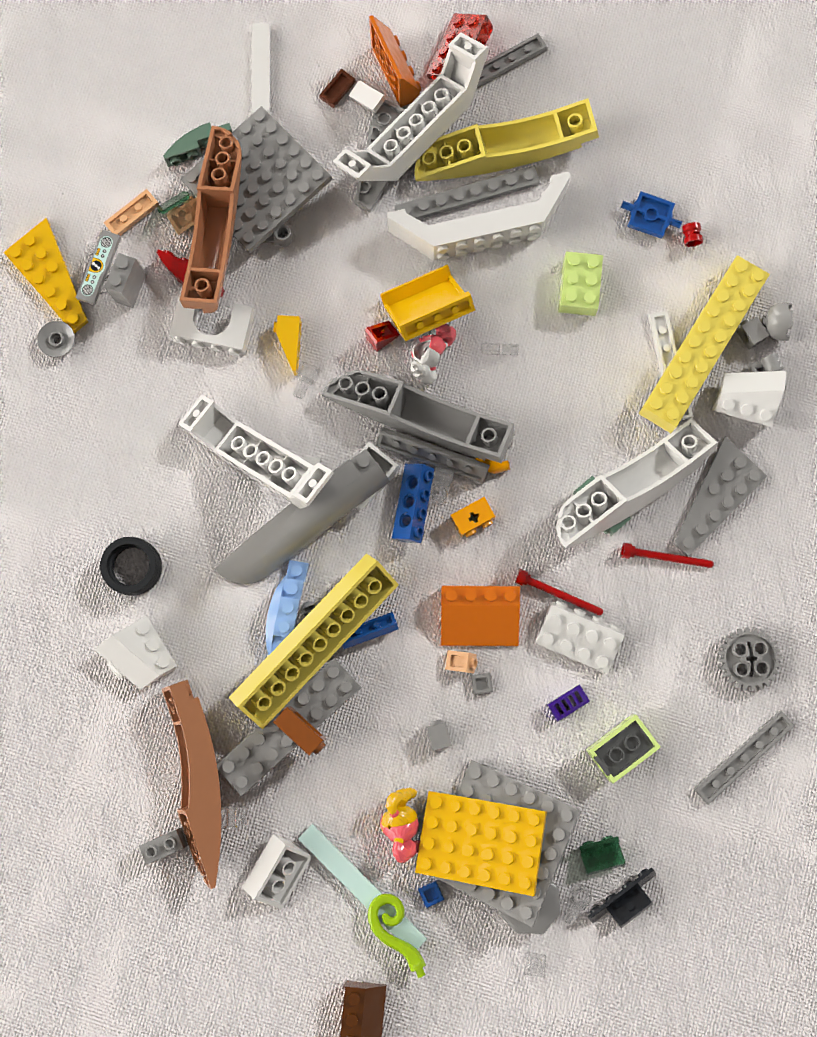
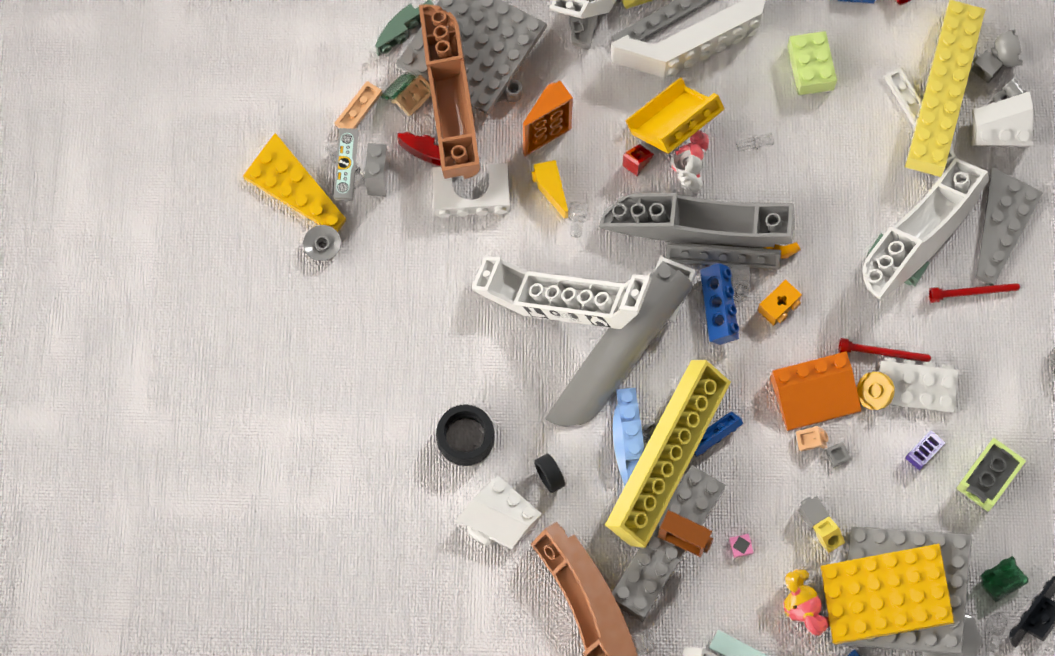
camera: 20 degrees left, 10 degrees down
(197, 626) = (549, 473): none -> black tyre
(298, 273) = (548, 118): none -> orange slope
(360, 747) = (741, 545): none -> tile
(445, 763) = (829, 534): none -> light yellow brick
(537, 632) = (875, 390): none -> yellow tile

